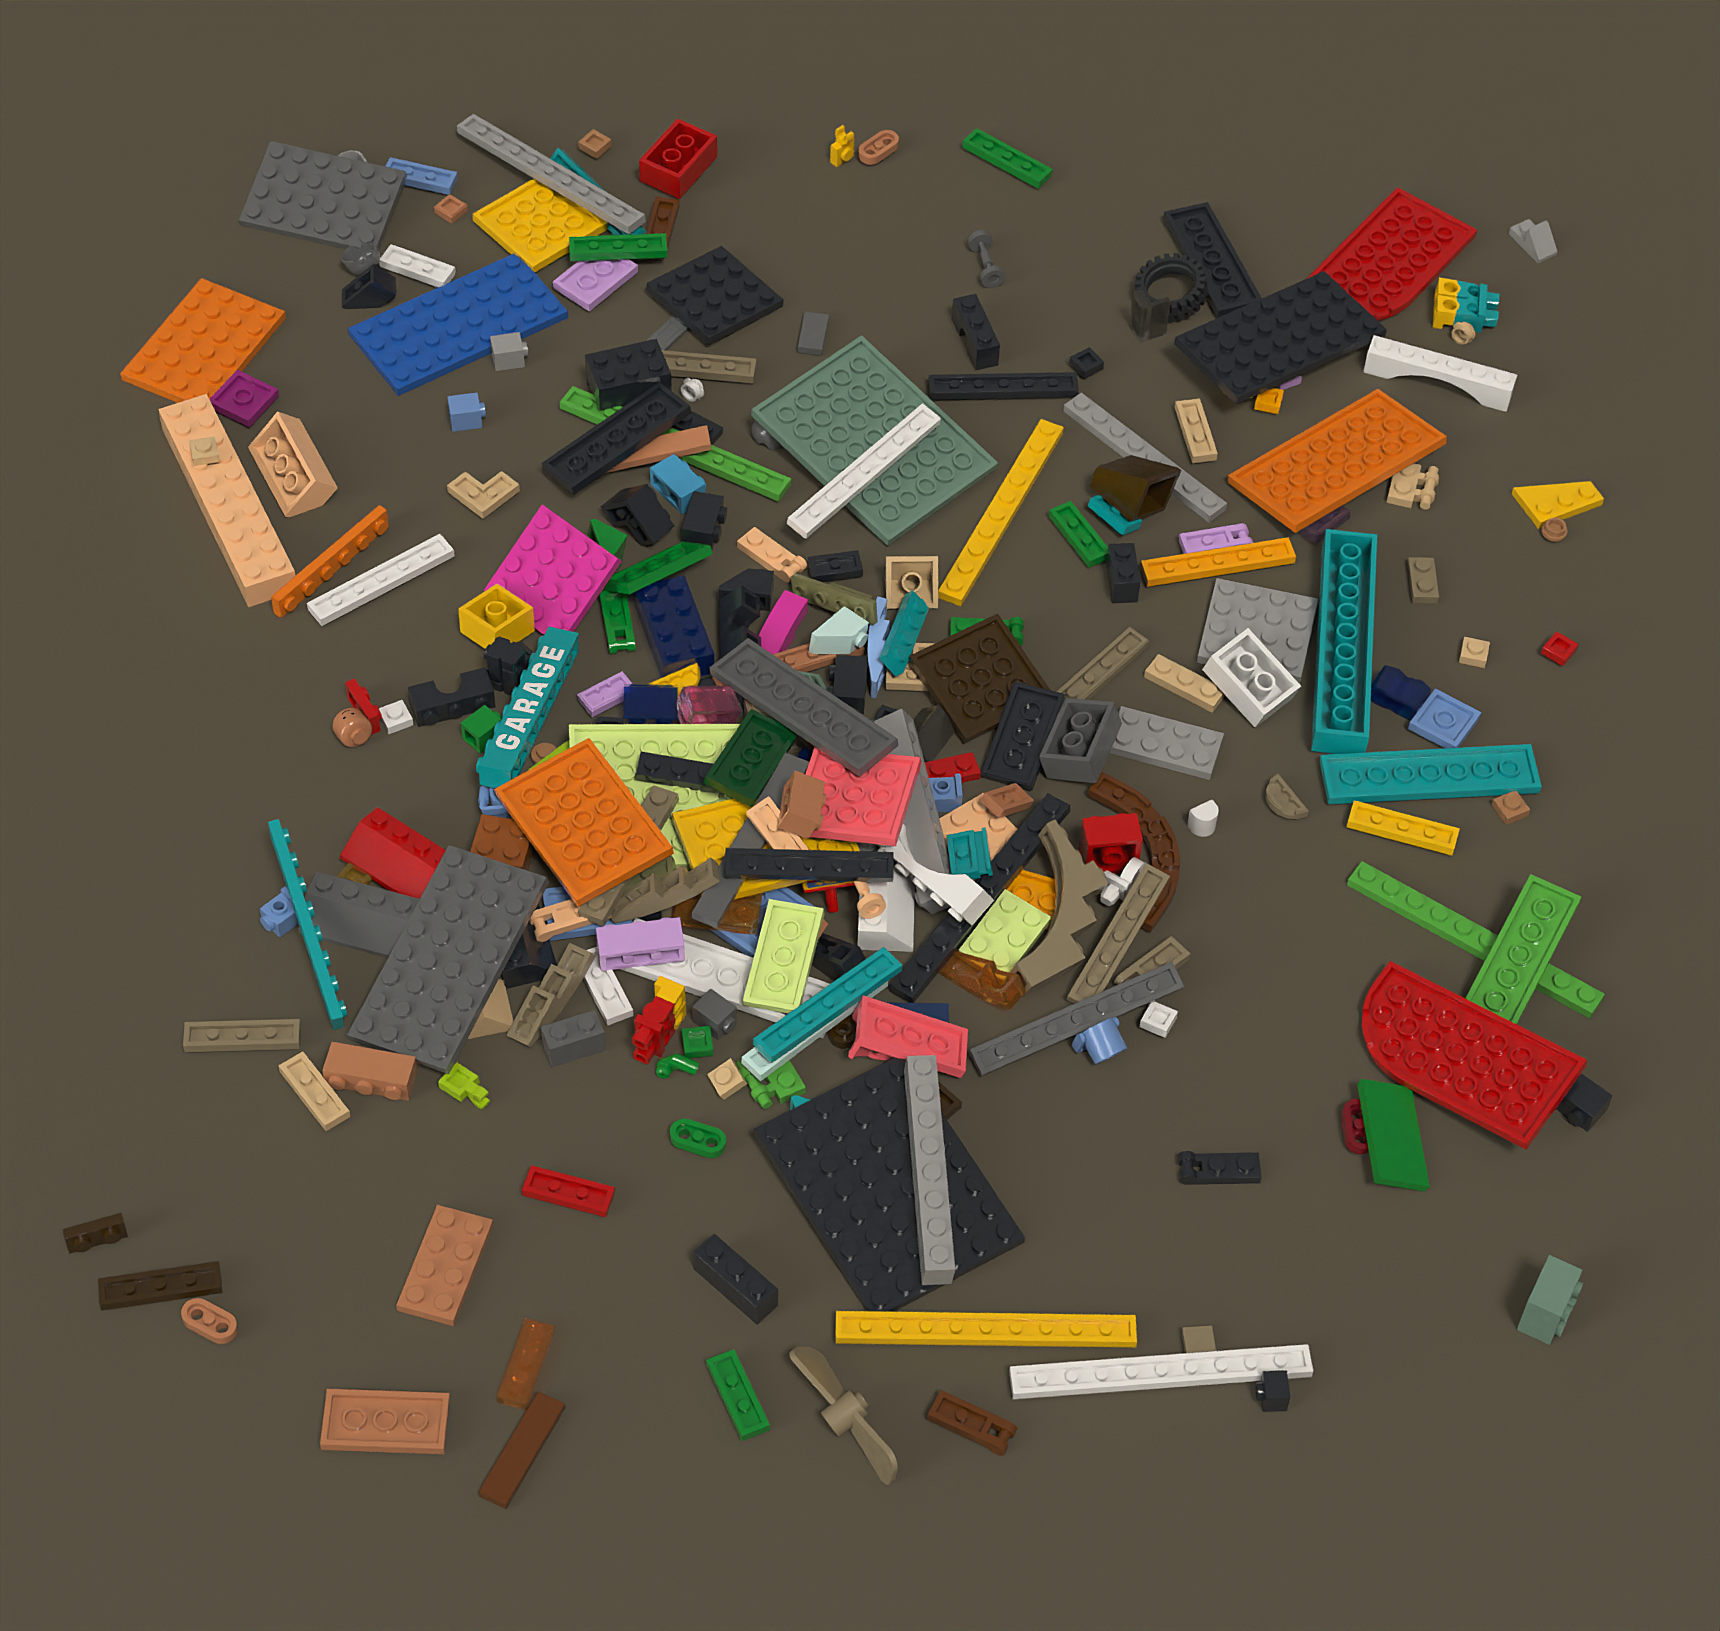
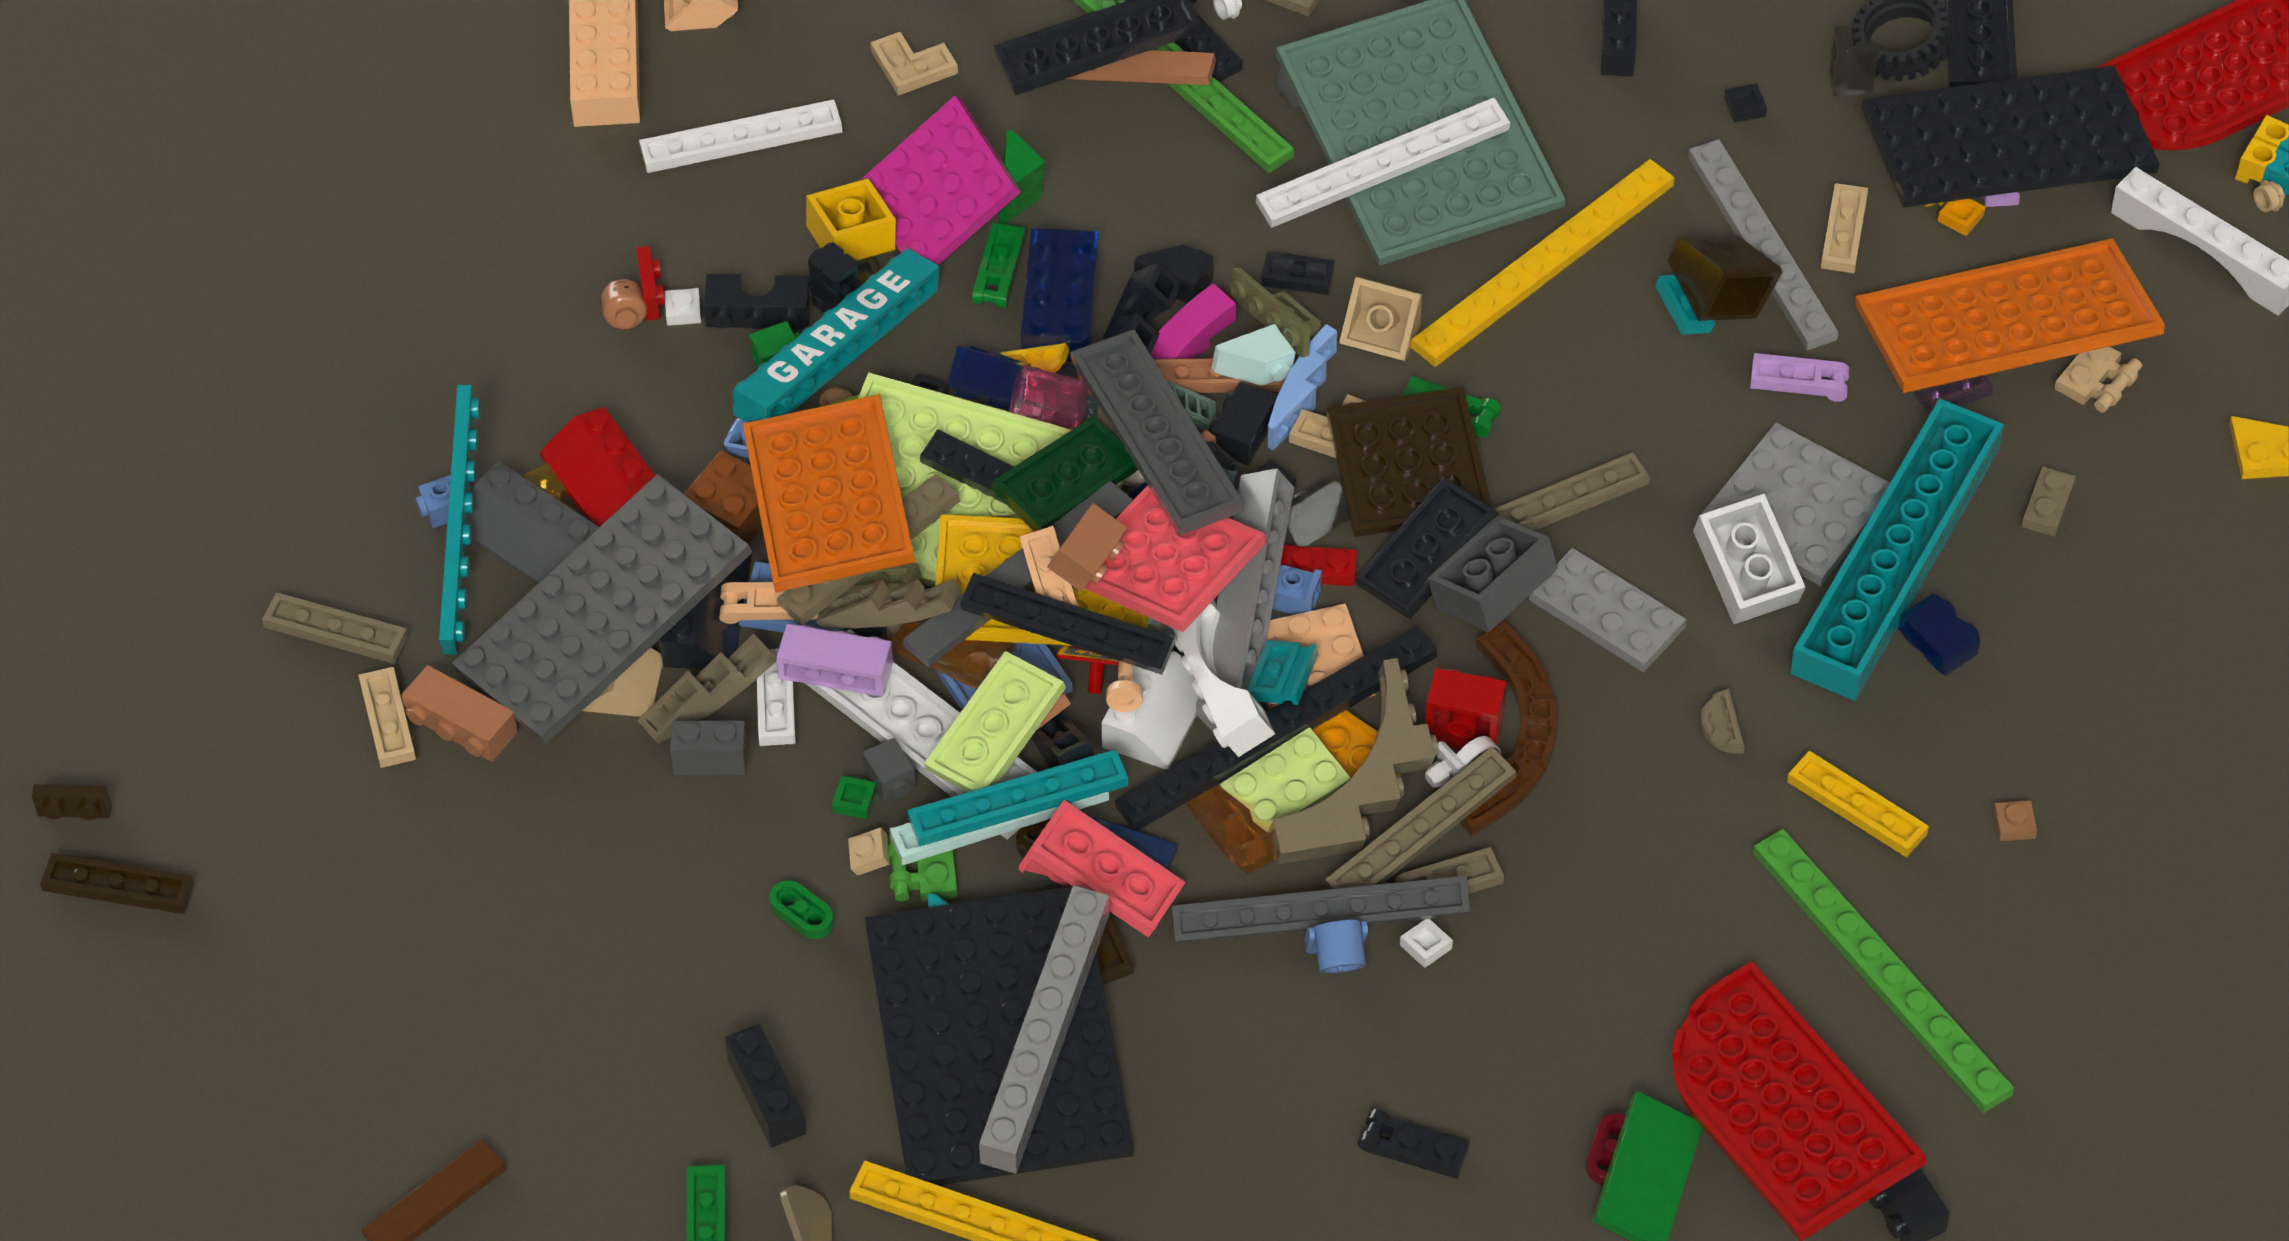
camera: 25 degrees right, 0 degrees up
(211, 1322) = (155, 942): nougat plate -> none
(330, 561) = (690, 97): orange plate -> none
(385, 1421) = (295, 1116): nougat plate -> none
(445, 1265) = (444, 963): nougat plate -> none
(464, 1083) = (559, 760): lime plate -> none
(525, 1364) = (483, 1104): clear orange plate -> none
(568, 1191) = (622, 923): red plate -> none
(604, 694) = (938, 350): lavender plate -> none
(640, 512) = (1085, 141): black brick -> none
(657, 567) = (1071, 212): green tile -> none
(659, 1020) = (815, 757): red hips -> none
(674, 1062) = (816, 813): green arm -> none
(676, 482) = (1152, 117): dark azure brick -> none
(704, 519) = (1161, 171): black brick -> none
(771, 554) = (1226, 235): light nougat plate -> none
(904, 633) = (1338, 378): teal plate -> none
(1003, 385) = (1622, 103): black plate -> none
(1006, 800) = (1366, 620): nougat plate -> none
(1079, 533) = (1627, 318): green plate -> none
(1123, 573) = (1655, 382): black brick -> none
(1184, 683) = (1669, 542): tan plate -> none
(1203, 819) = (1605, 717): white brick -> none
(1217, 562) = (1788, 402): light orange plate -> none
(1429, 774) = (1928, 747): teal plate -> none
(1444, 720) = (1982, 686): medium blue plate -> none
(1474, 652) = (2069, 612): tan plate -> none
(1524, 948) = (1925, 1000): bright green plate -> none
(1554, 529) = (2259, 485): medium nougat plate -> none
(1559, 648) = (2184, 639): red plate -> none

